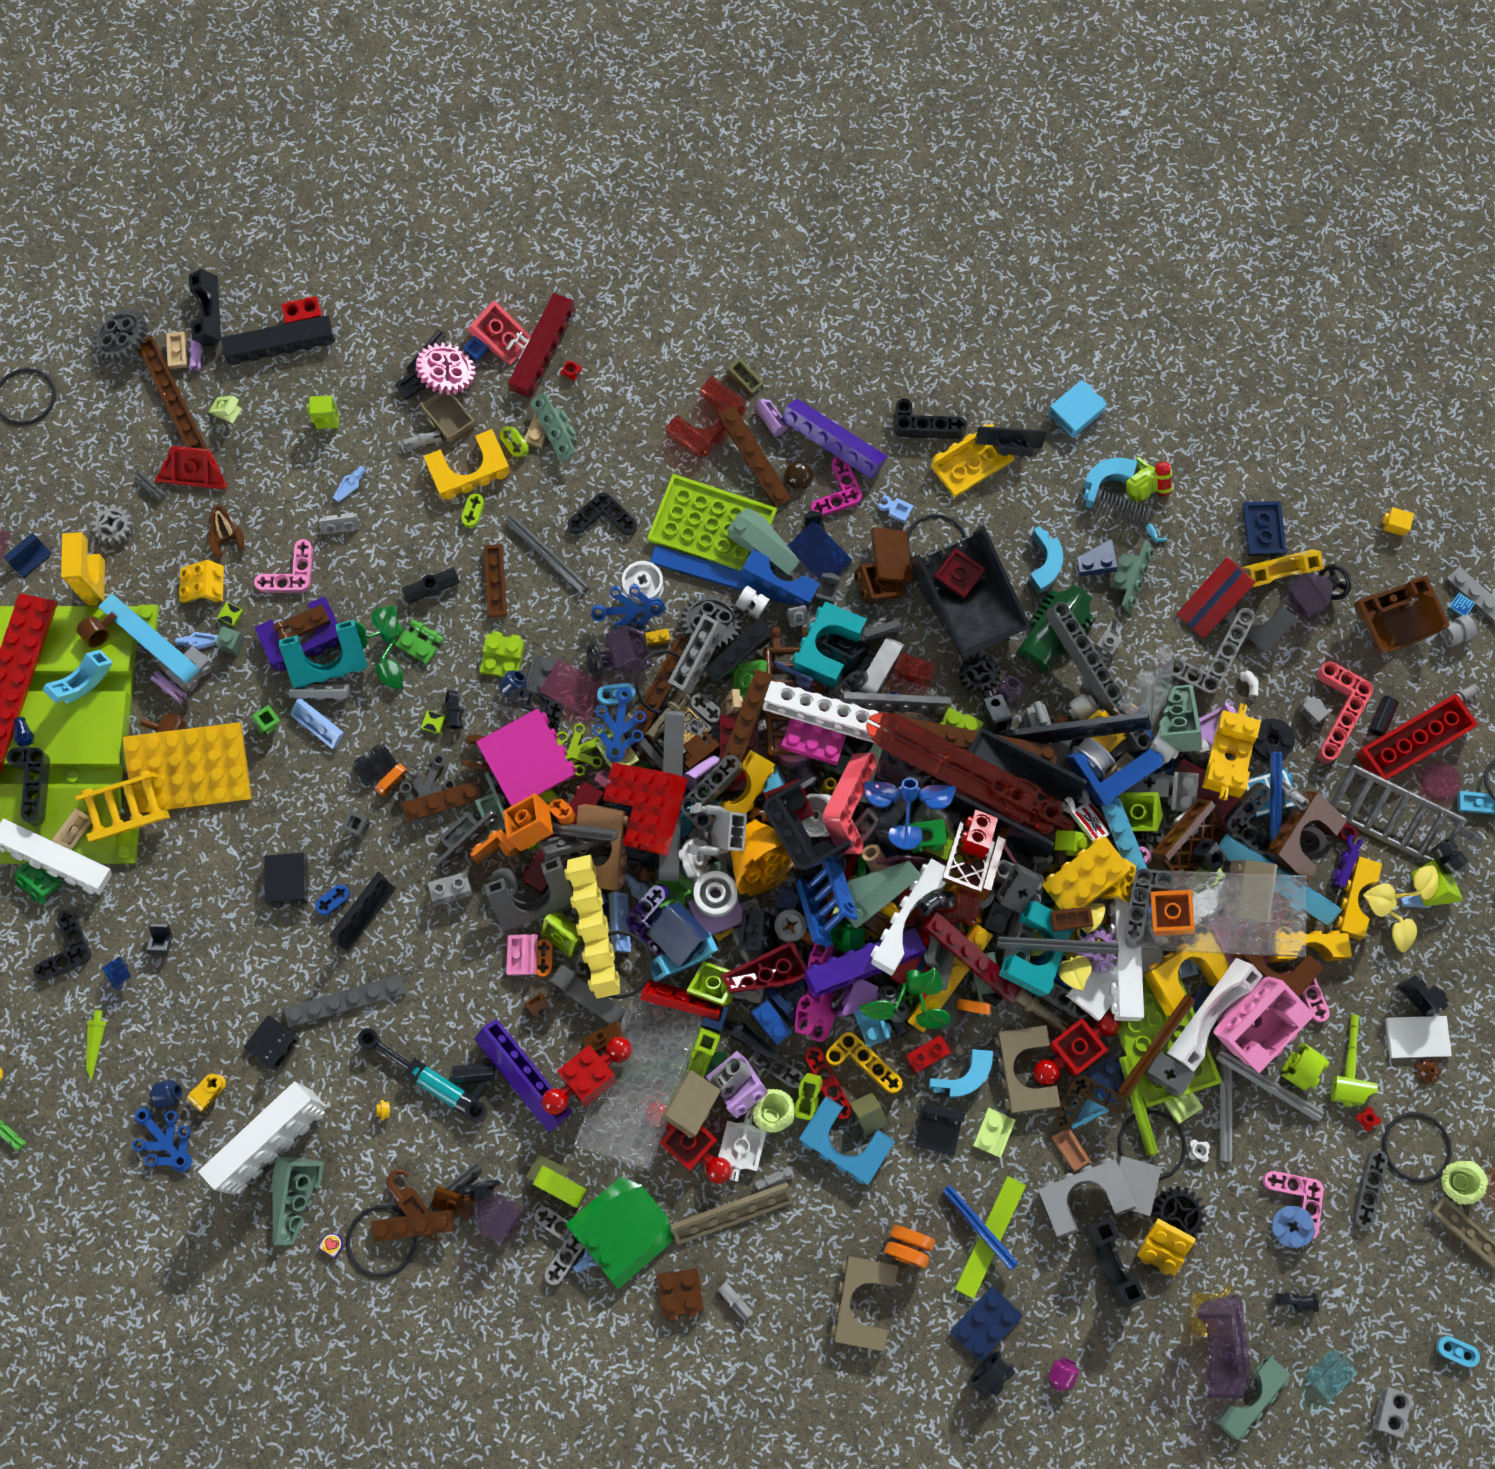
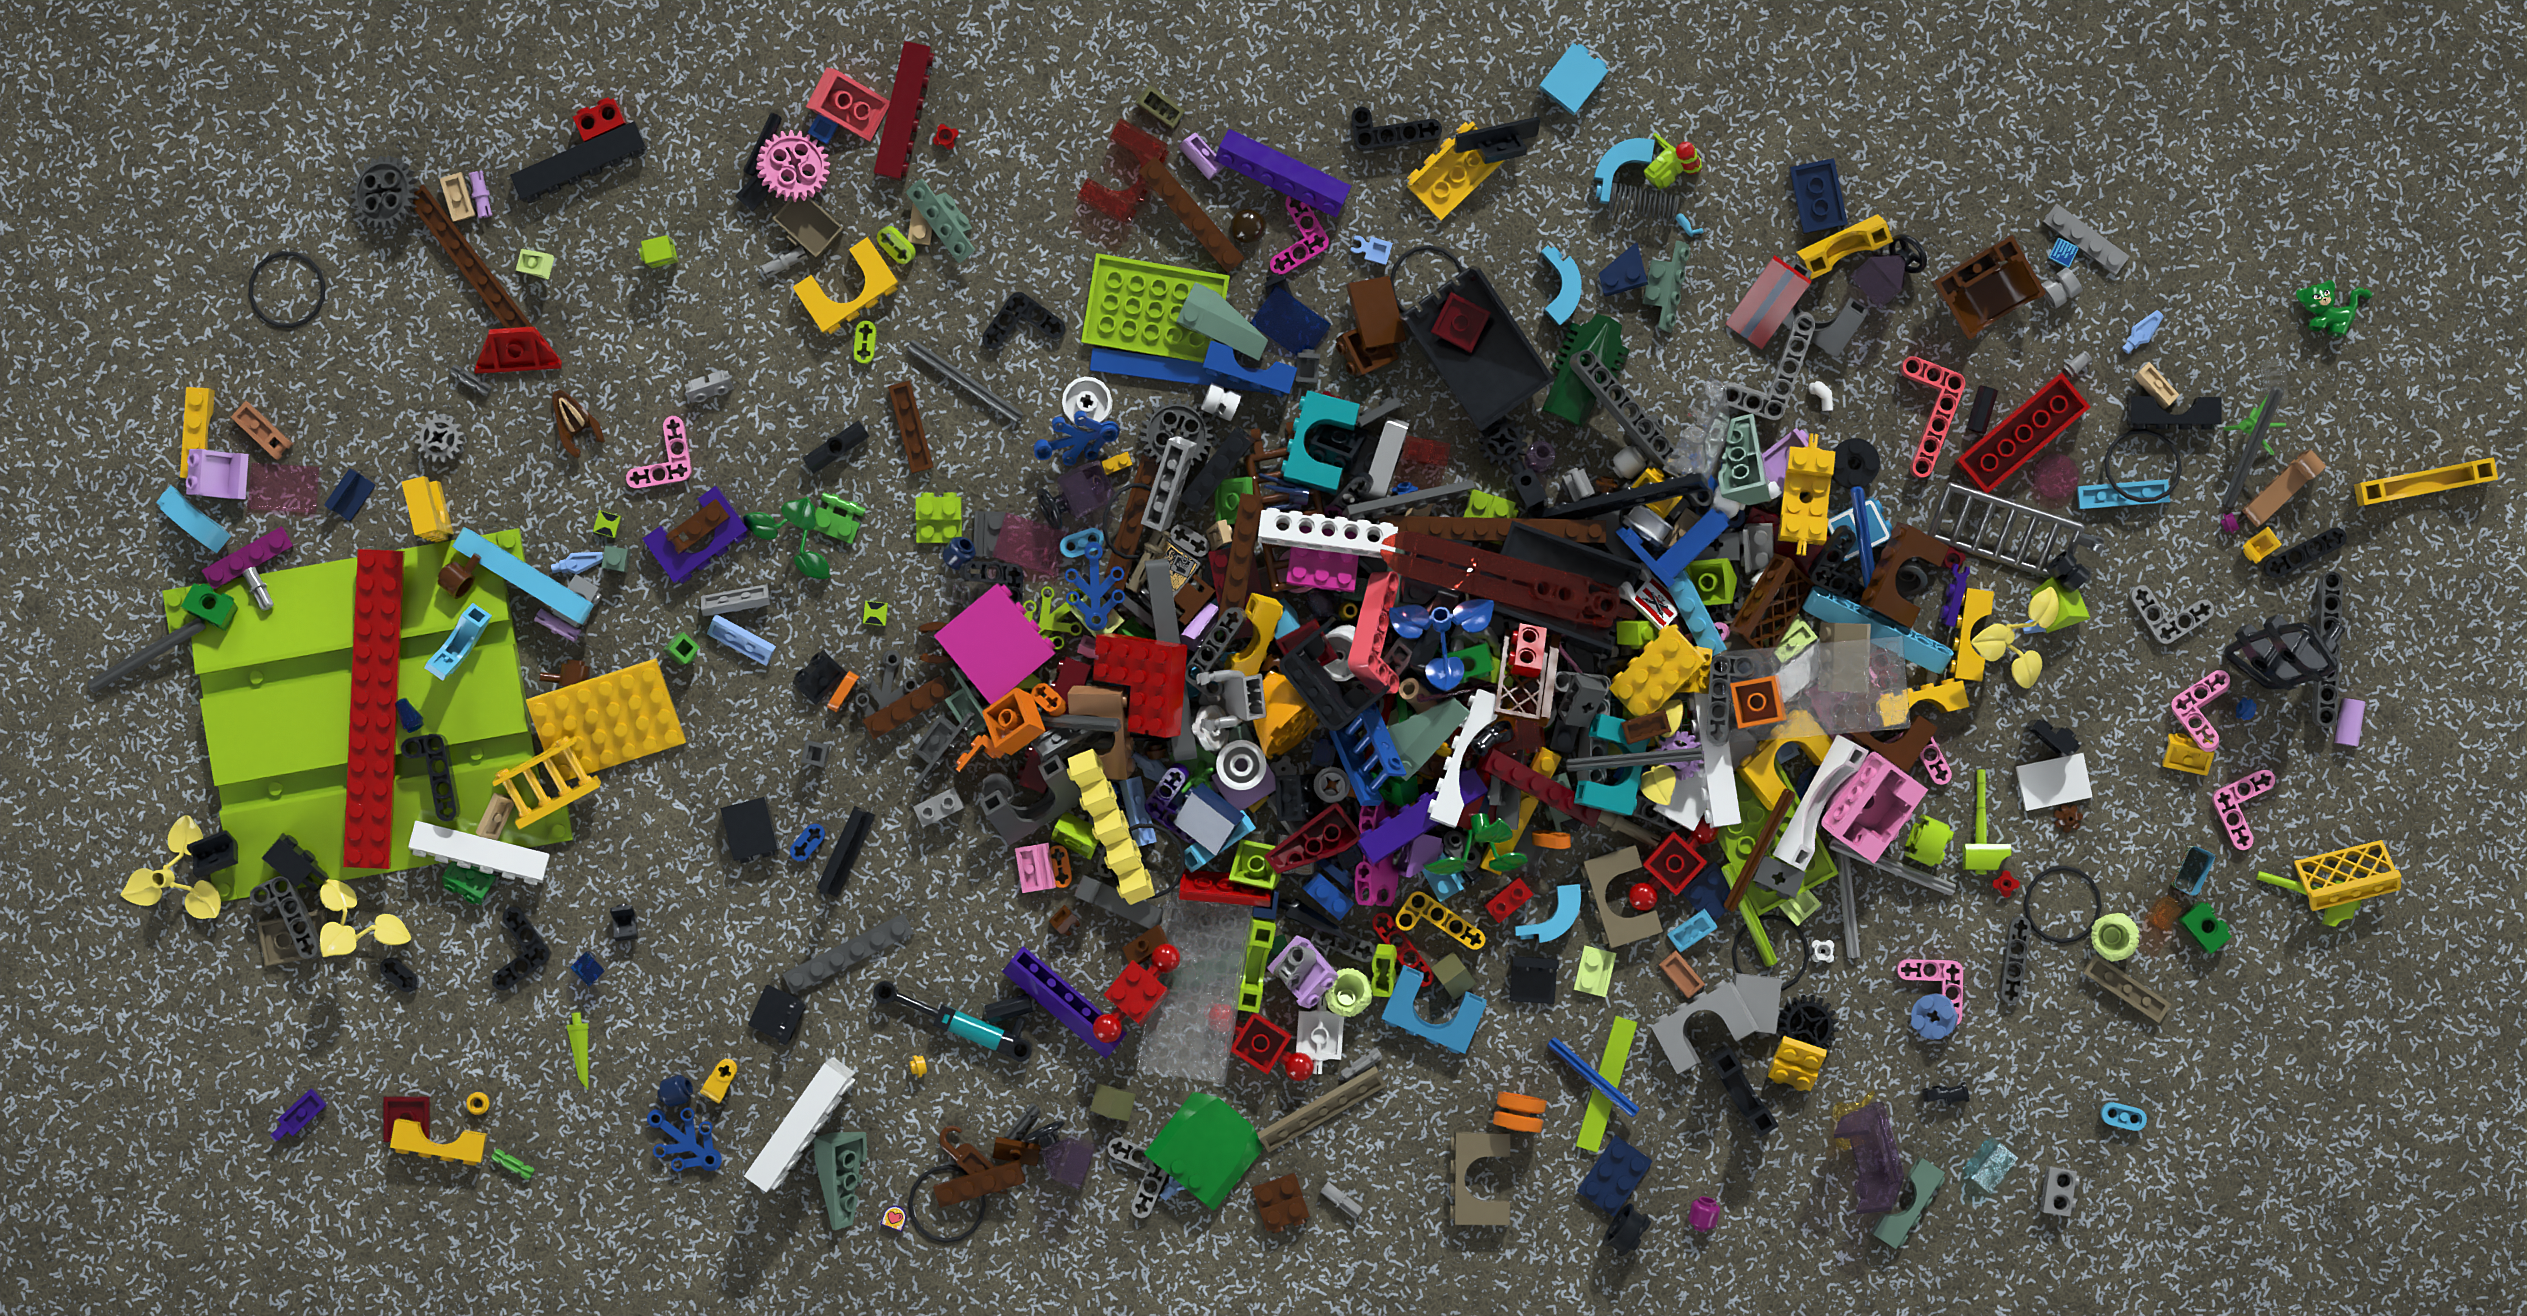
camera: 10 degrees left, 15 degrees up
(201, 581) = (563, 491): yellow bracket -> none
(205, 289) = (473, 111): black arch -> none
(304, 672) = (715, 581): teal arch -> none
(349, 484) = (708, 334): light blue piece -> none
(455, 712) = (899, 599): black connector -> none
(519, 335) = (873, 105): white piece -> none
(559, 1186) = (1129, 1115): lime beam -> none
(691, 1103) = (1256, 1004): dark tan container -> none
(797, 616) = (1277, 410): light grey bracket -> none
(1088, 1093) = (1692, 913): dark brown beam -> none
(1107, 645) = (1648, 380): light grey brick -> none
(1209, 855) = (1794, 618): black brick -> none
(1293, 795) = (1882, 533): light grey axle -> none
(1313, 710) = (1899, 417): light grey brick -> none
(1397, 521) = (1977, 159): yellow brick -> none

